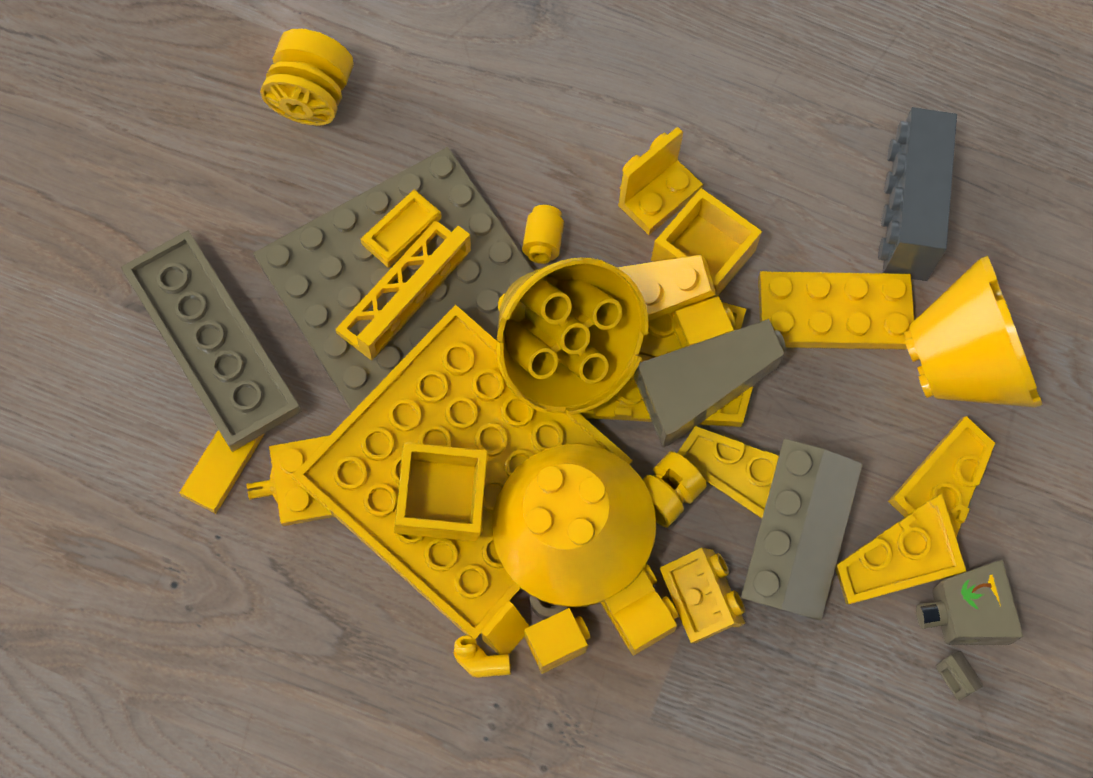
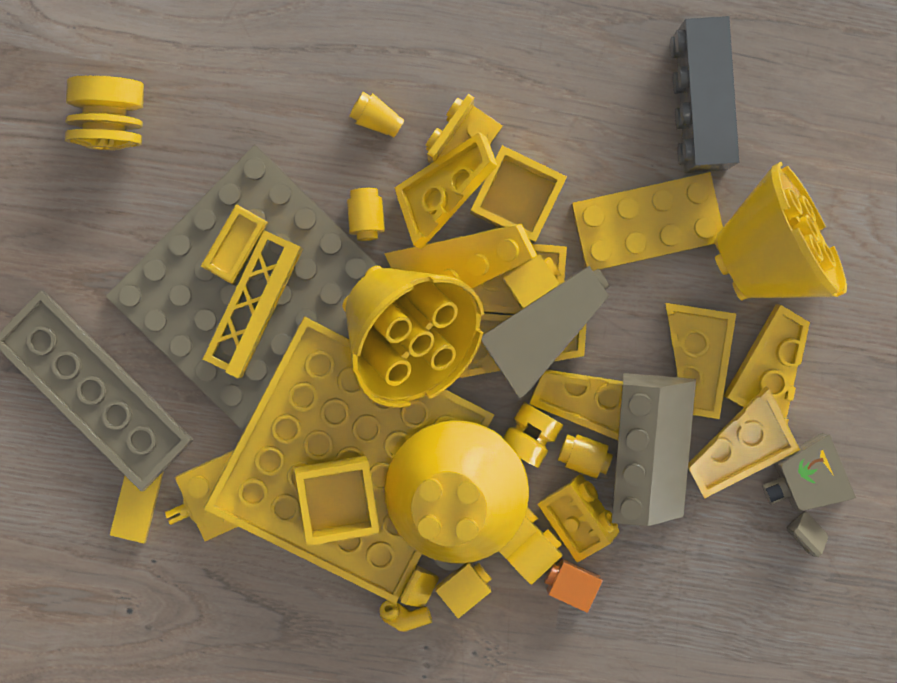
camera: 15 degrees left, 20 degrees up
(575, 146) = (375, 115): none -> yellow cone
(630, 219) = (443, 186): none -> yellow wing
(680, 665) = (572, 584): none -> orange brick
(723, 527) = (585, 455): none -> yellow brick
(878, 439) = (702, 352): none -> yellow wing

